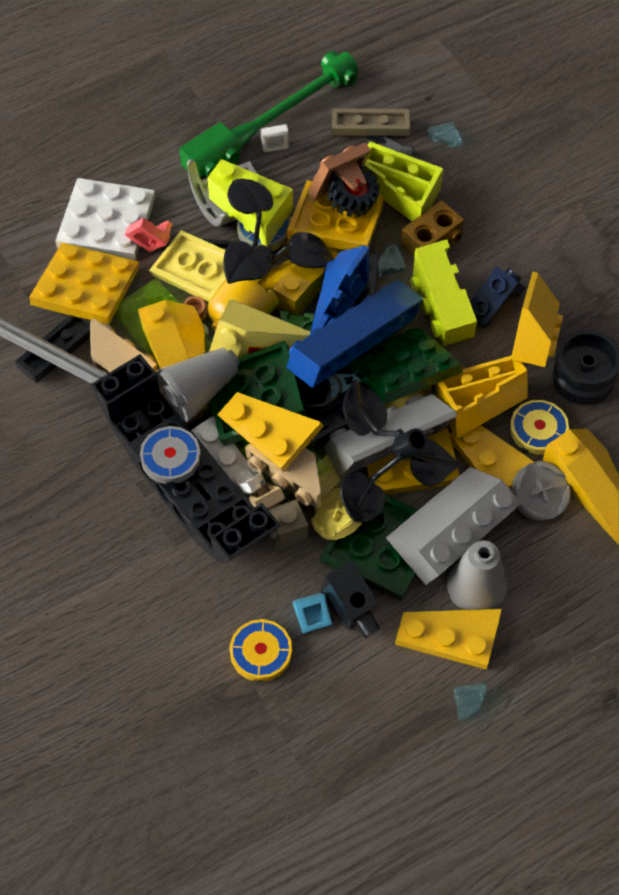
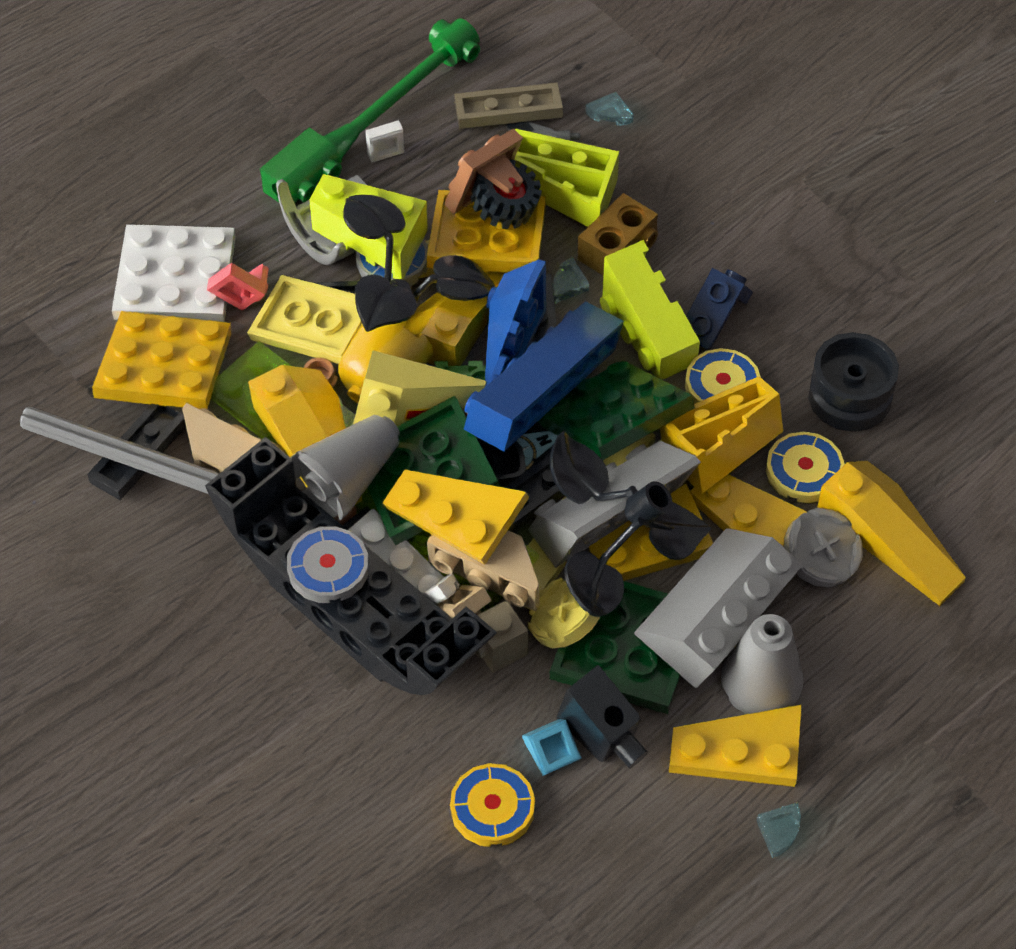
camera: 10 degrees left, 5 degrees down
(486, 346) = (717, 372): none -> tile
(537, 325) = (780, 335): yellow slope -> none

